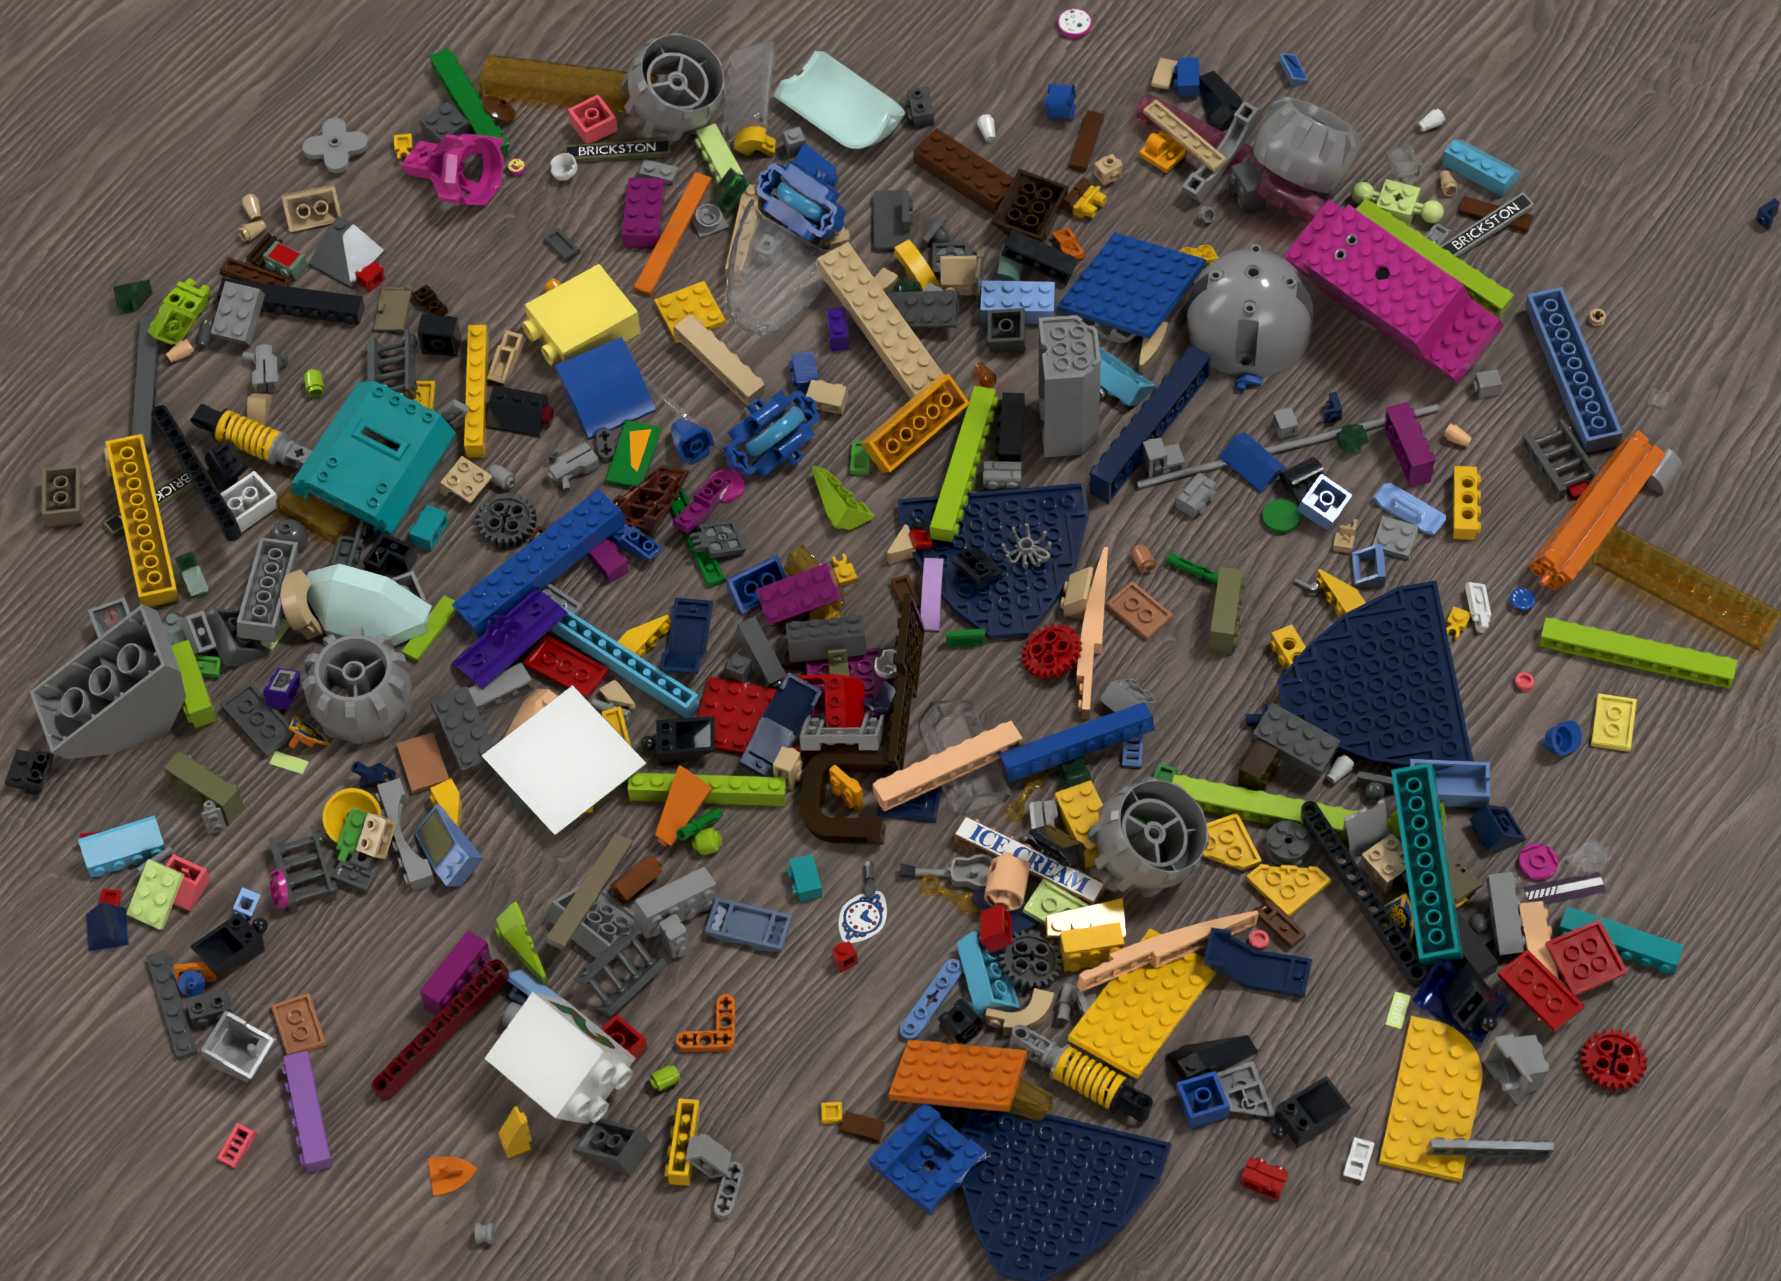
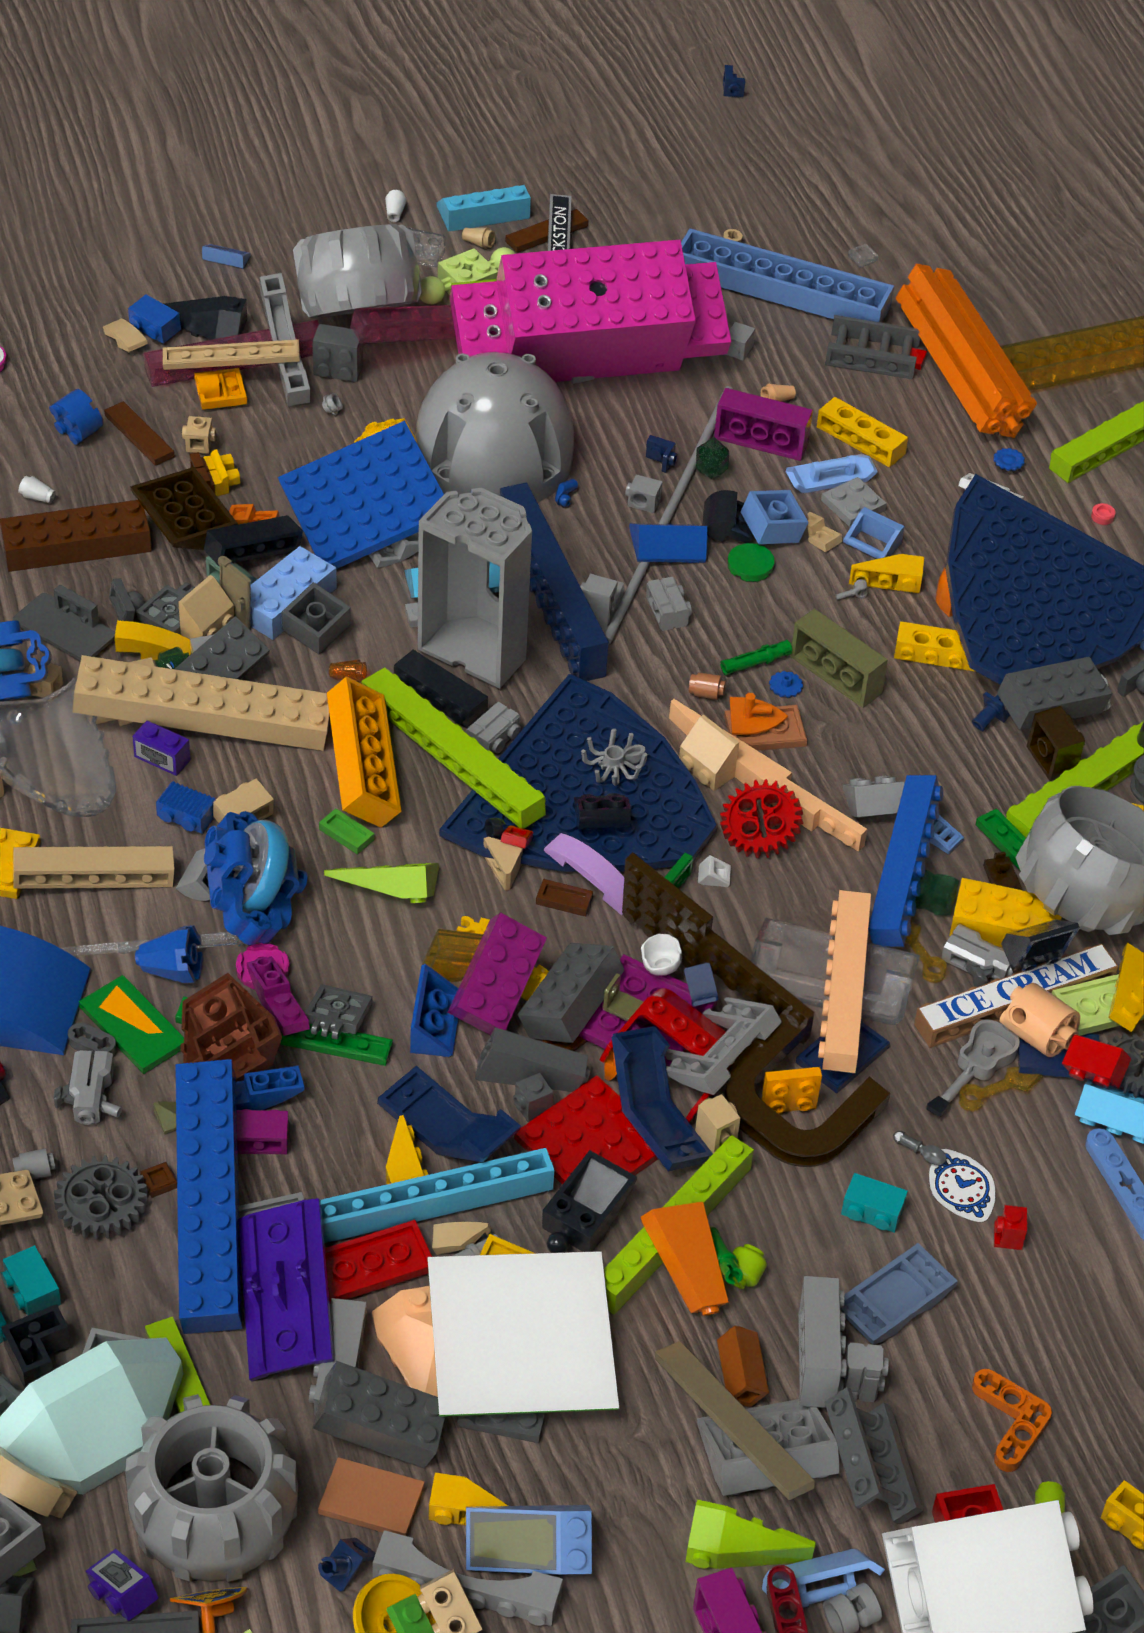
camera: 60 degrees left, 10 degrees down
(994, 656) = (714, 872): none -> white slope
(1139, 597) = (753, 715): none -> orange shield
(1189, 599) = (786, 684): none -> blue piece

